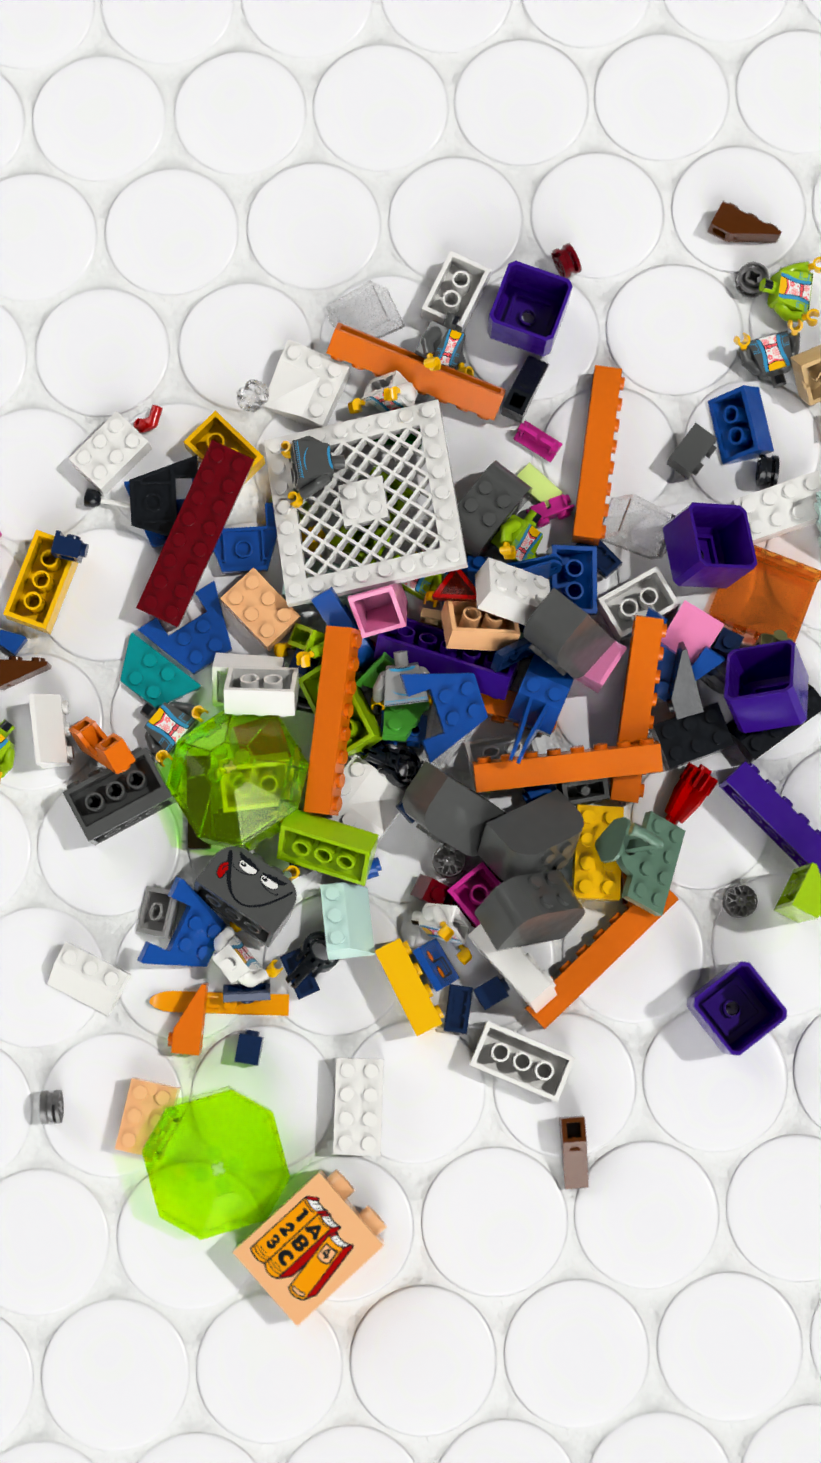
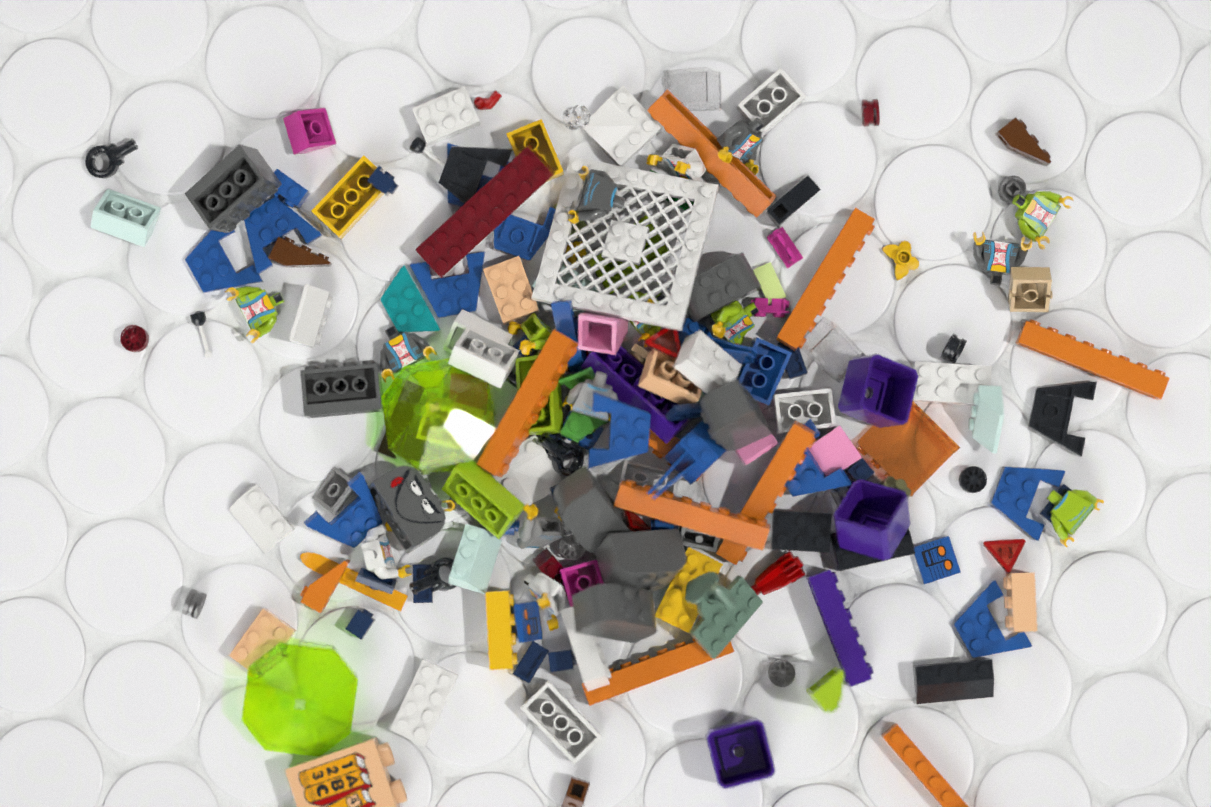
camera: 25 degrees right, 5 degrees up
(108, 751) = (346, 352): orange arch -> none
(405, 857) = (540, 530): none -> light grey torso
(504, 803) = (634, 522): none -> clear red piece
(533, 292) = (827, 125): dark purple plate -> none
(669, 400) = (902, 258): none -> yellow animal
(682, 687) = (808, 493): slope -> none
(692, 450) = (901, 307): dark grey brick -> none
(740, 425) = (949, 303): blue slope -> none

